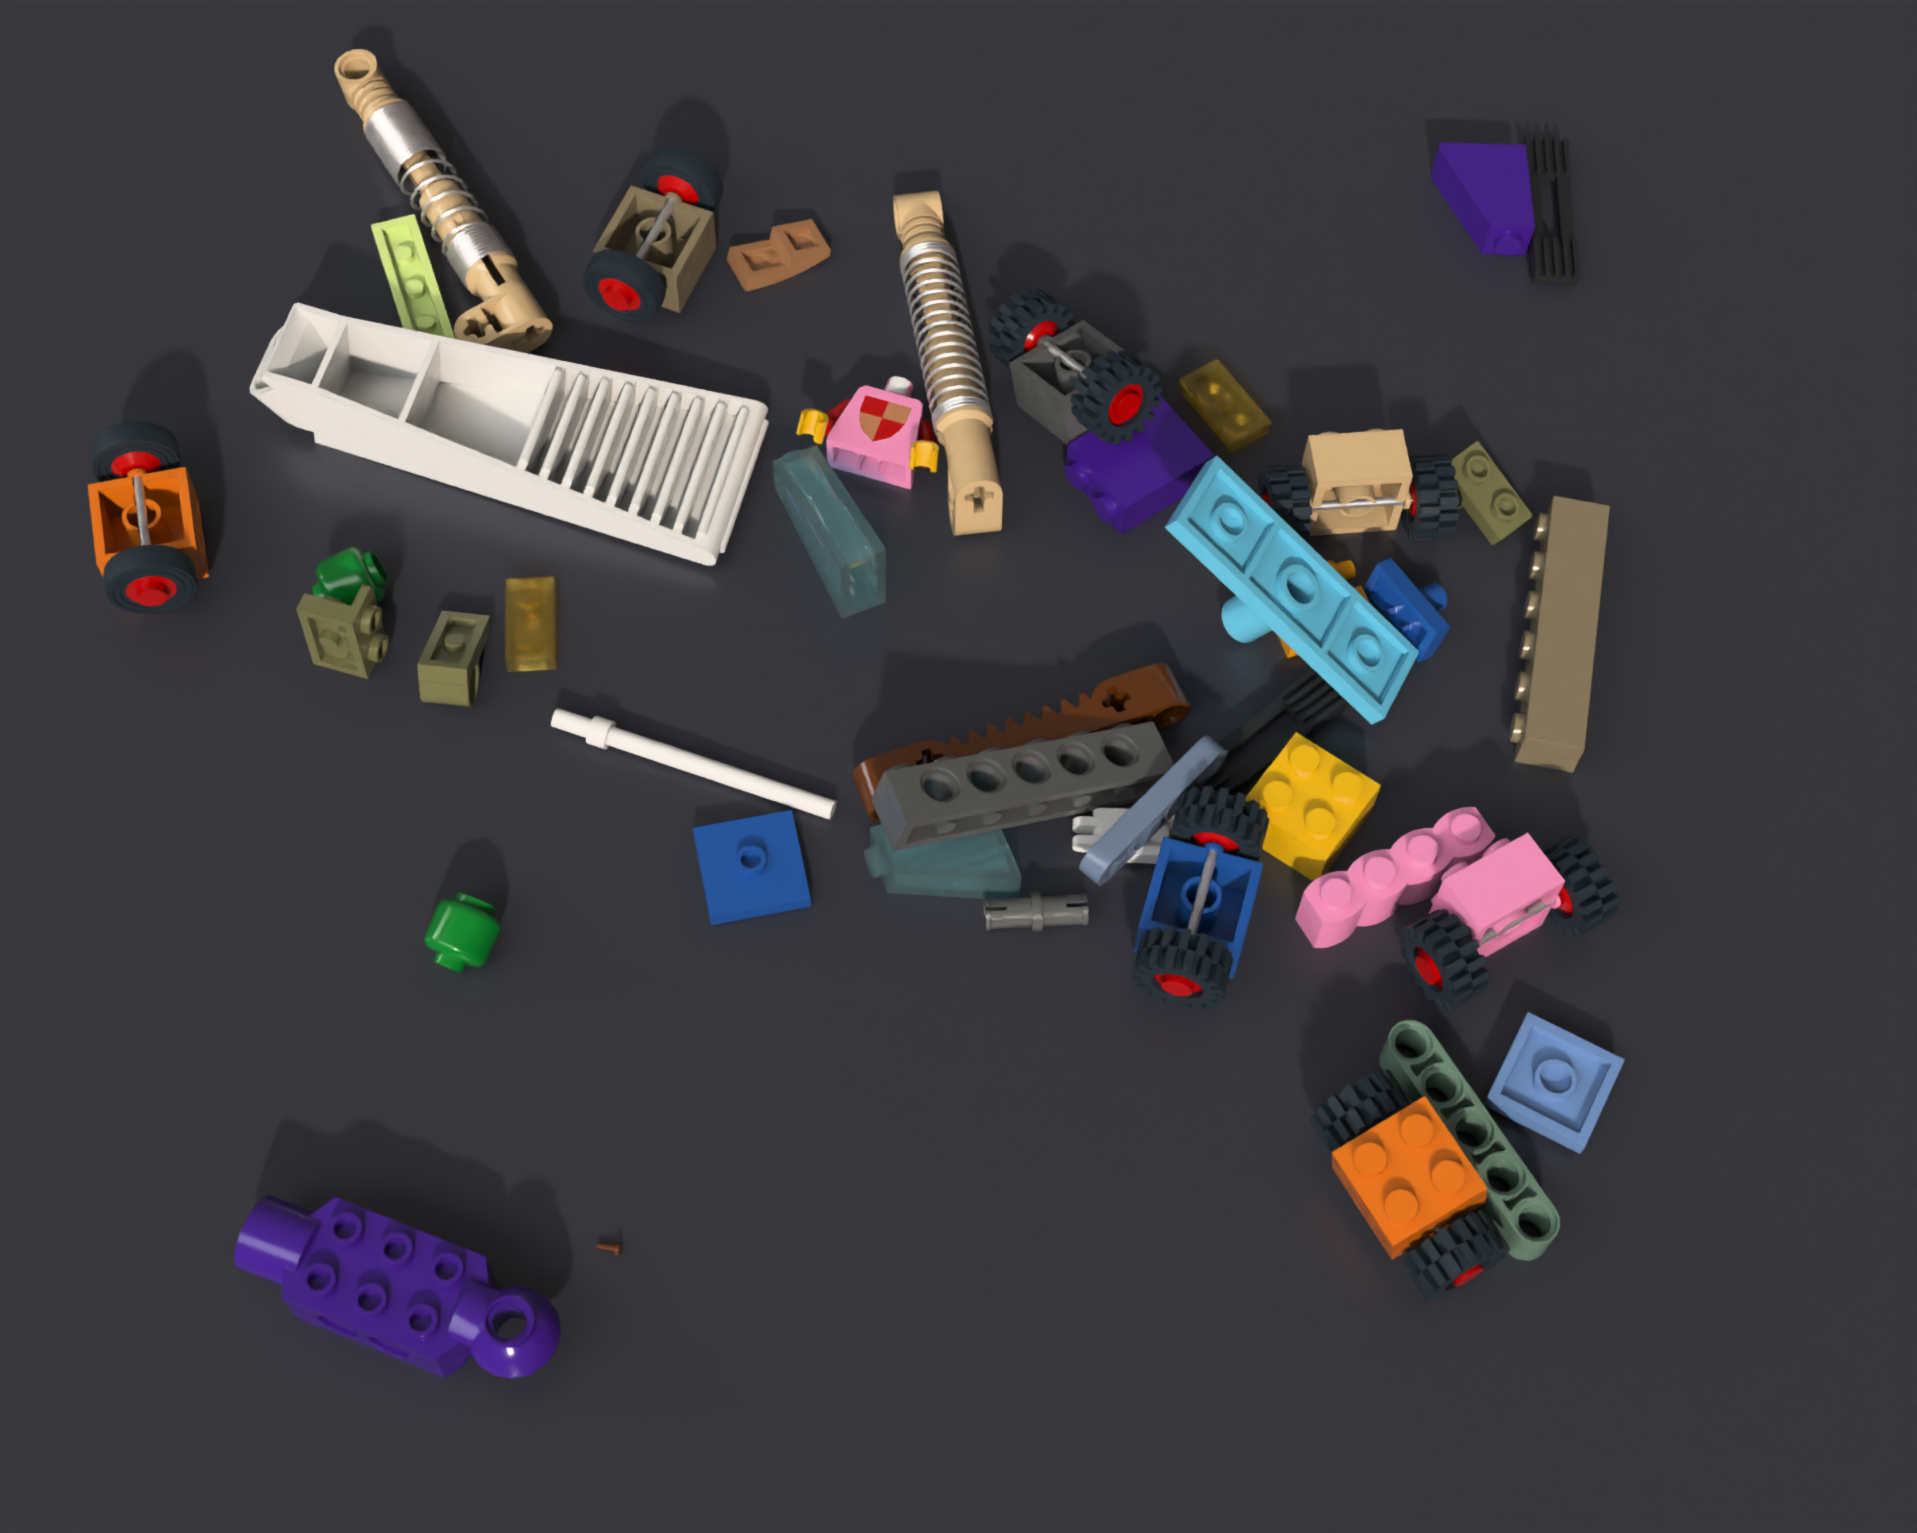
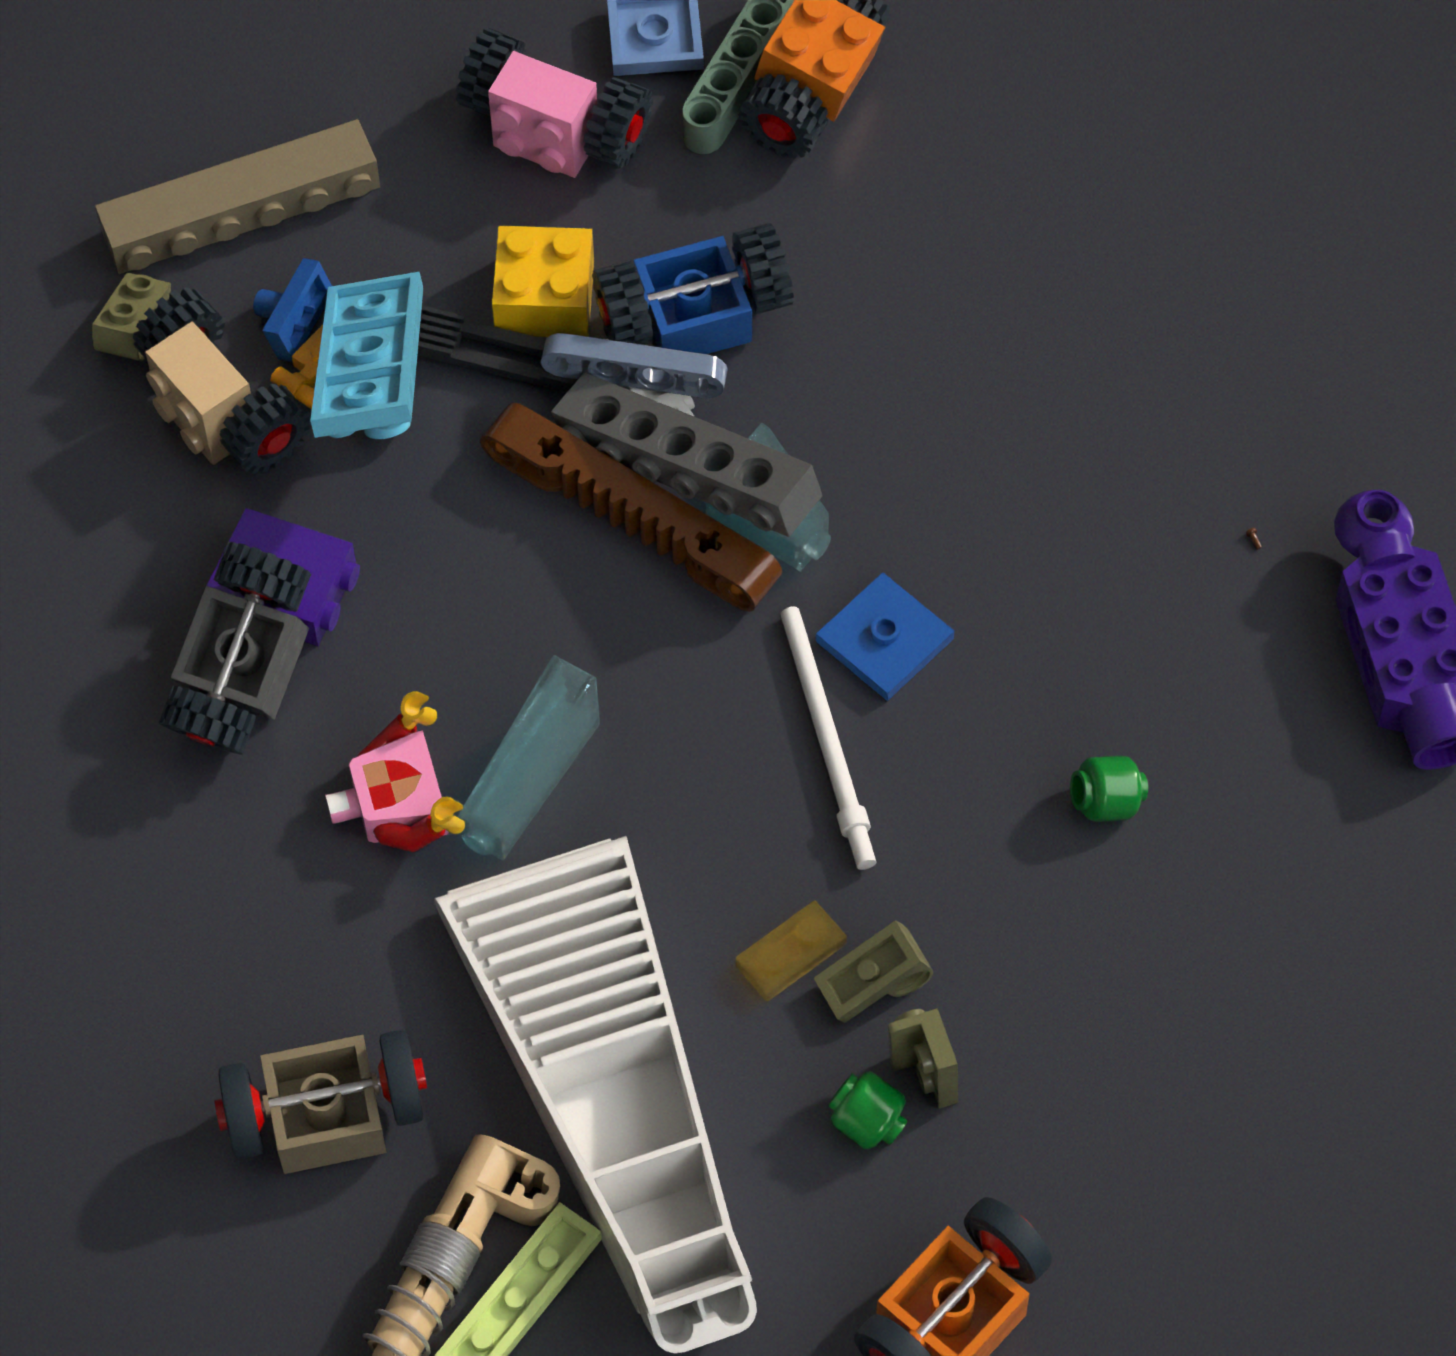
camera: 120 degrees left, 0 degrees up
(786, 253) = (239, 1017): medium nougat slope -> none
(960, 415) = (357, 704): tan piece -> none
(1035, 911) = (774, 415): dark grey pin -> none
(1224, 405) = (167, 550): clear yellow plate -> none
(1390, 877) = (559, 196): bright pink brick -> none

